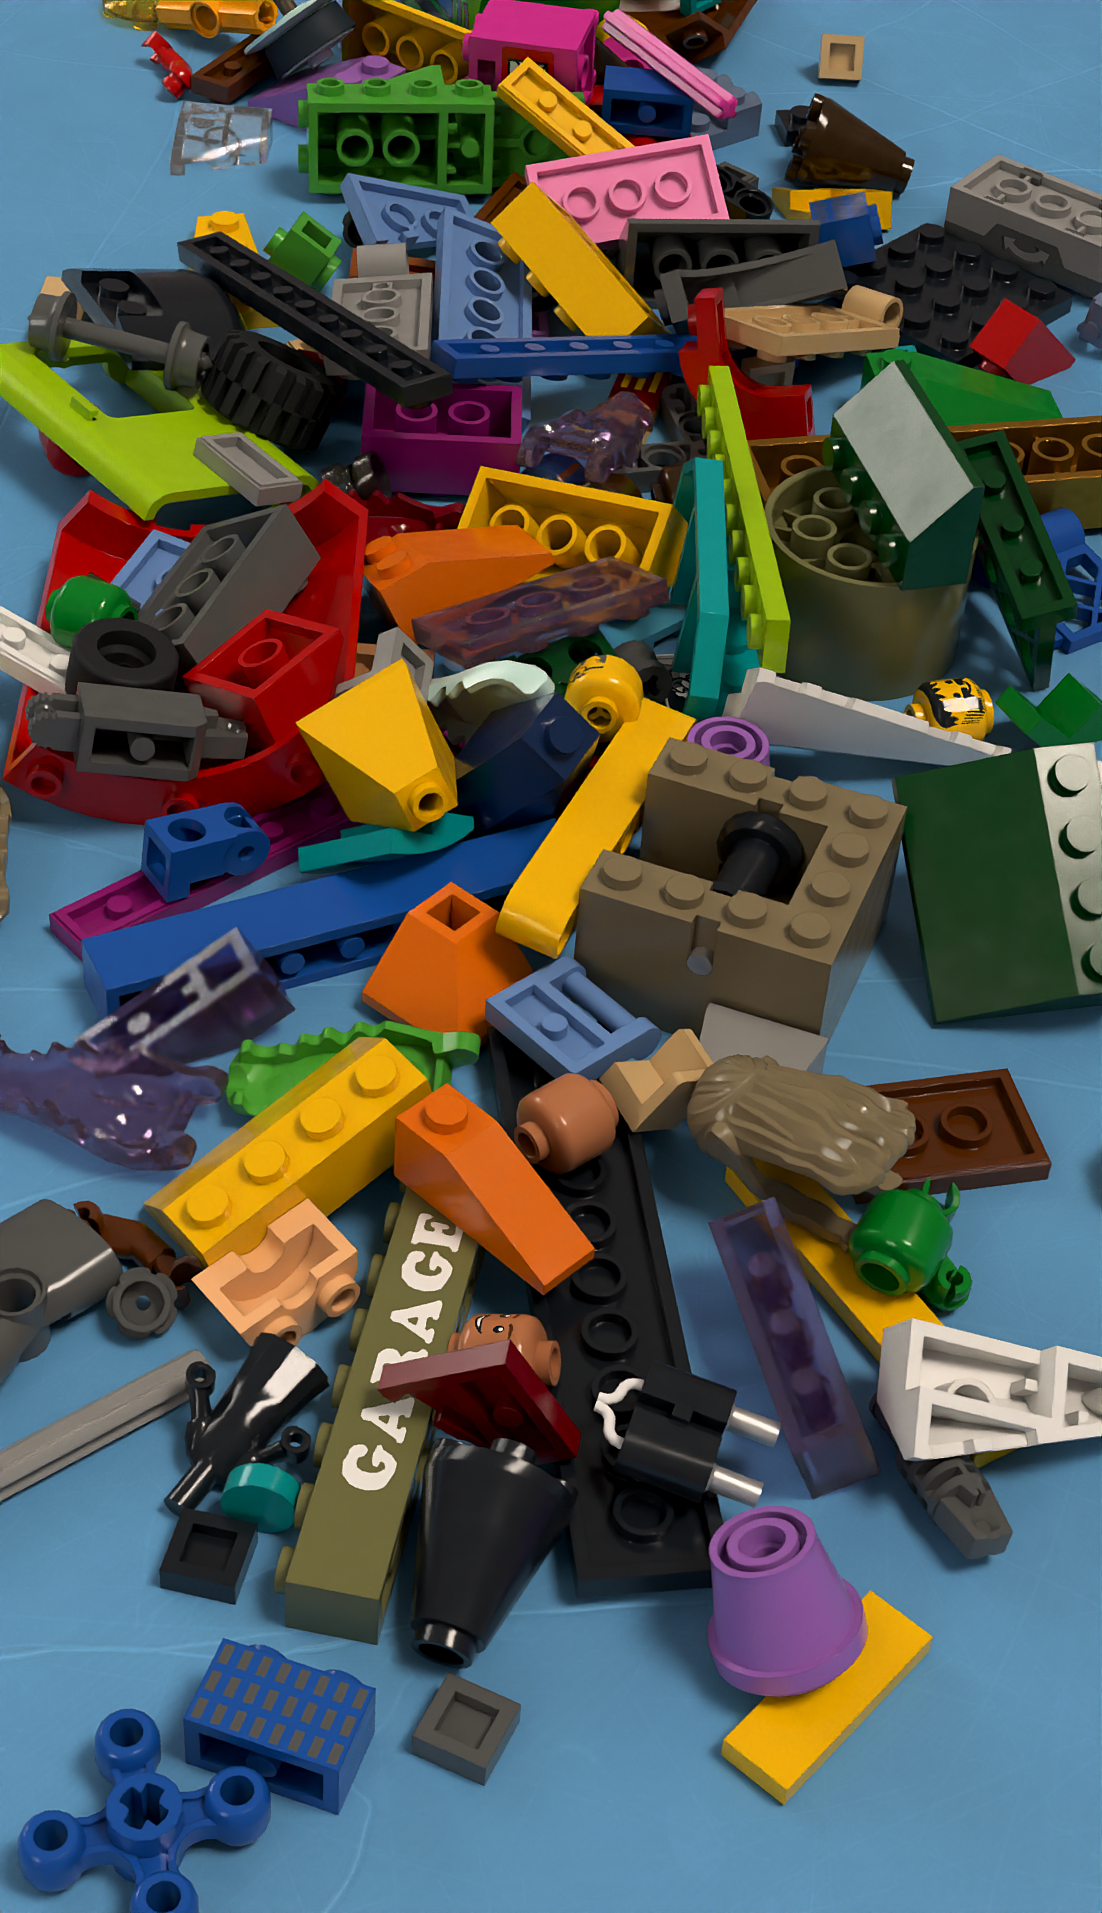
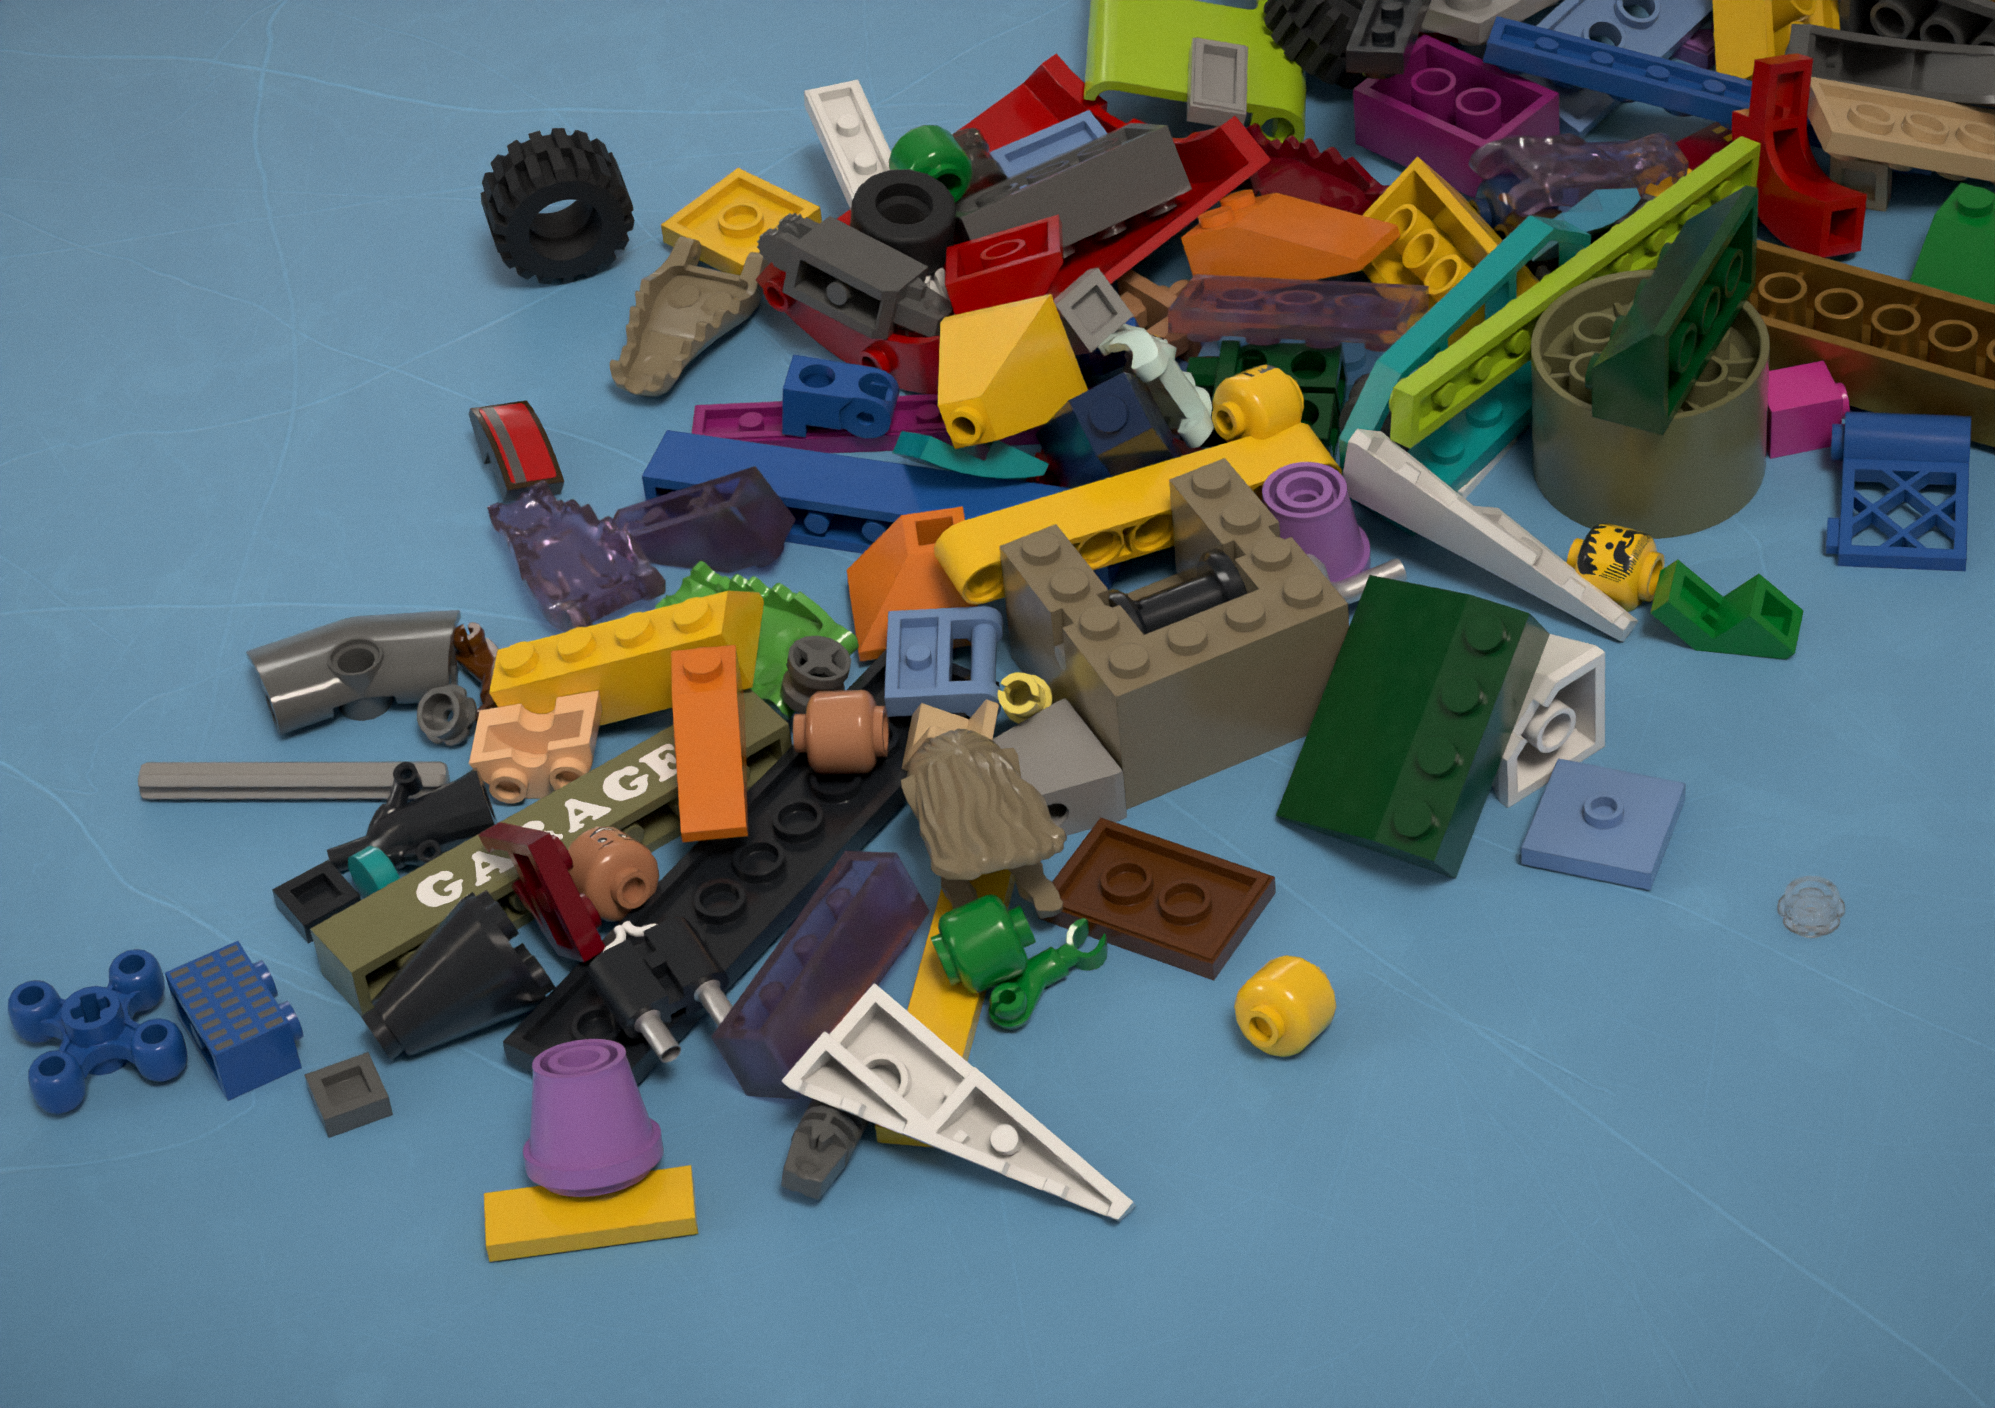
camera: 50 degrees right, 0 degrees up
(362, 475) = (1343, 128): clear smoke wheel -> none
(490, 1079) = (813, 666): none -> dark grey wheel
(657, 469) = (1593, 215): none -> dark azure slope
(685, 1012) = (1024, 696): none -> light yellow axle
(1019, 557) = (1779, 431): dark green fence -> none

